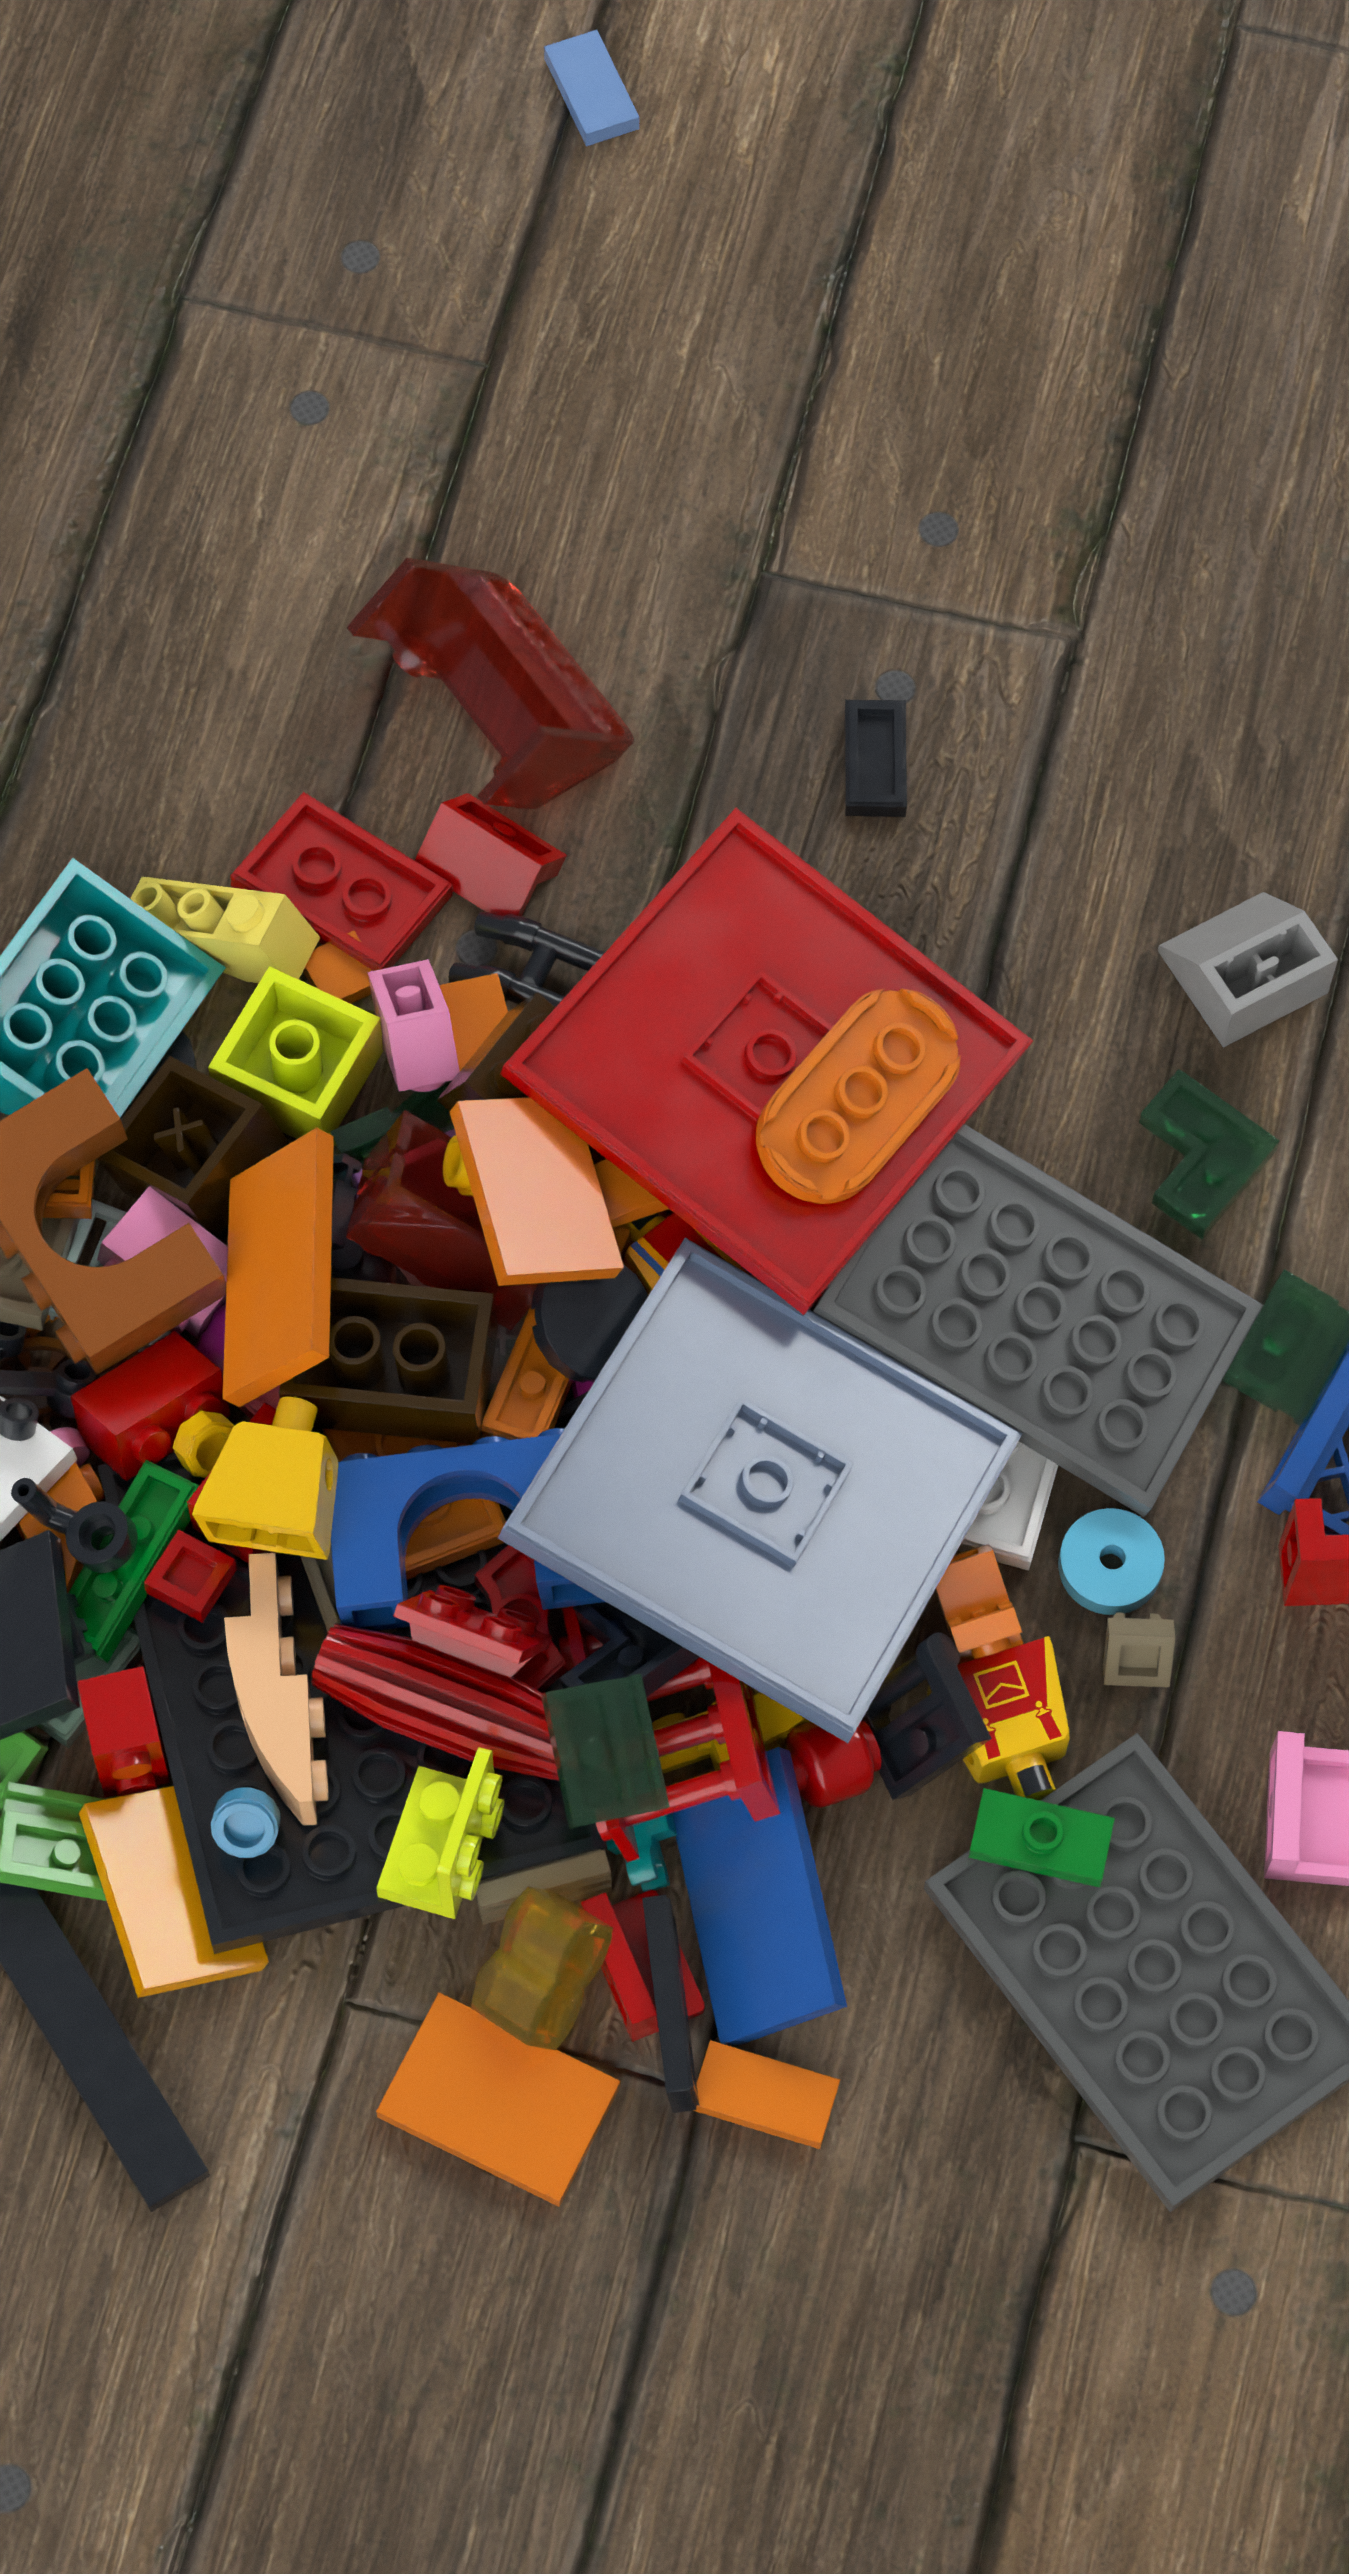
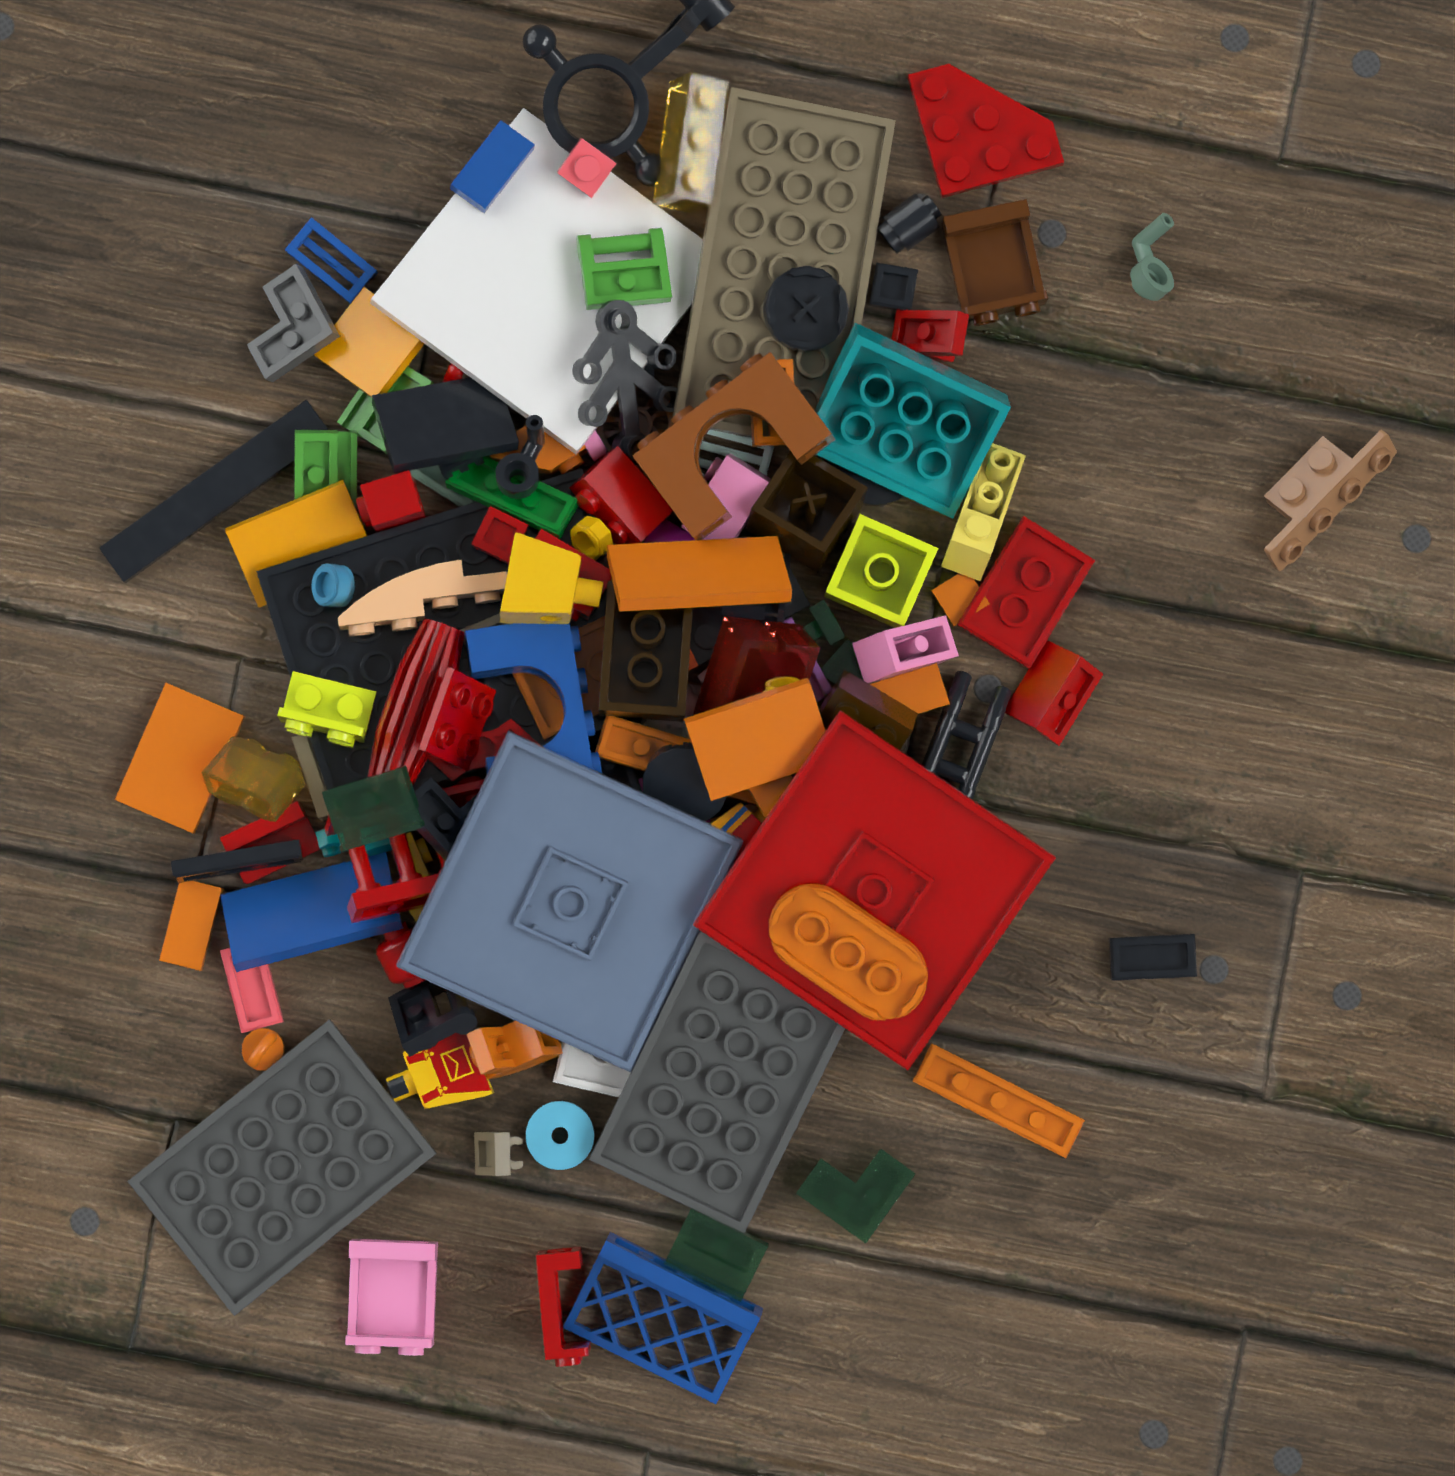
camera: 85 degrees right, 20 degrees up
(227, 511) = (1319, 489): none -> medium nougat bracket
(505, 674) = (1189, 703): clear red windscreen -> none
(879, 2007) = (252, 995): none -> coral tile
(966, 1993) = (262, 1048): none -> orange tile
(1041, 1837) = (358, 1092): green plate -> none
(1078, 959) = (998, 1100): none -> orange tile
(1251, 965) = (1001, 1219): light grey slope -> none

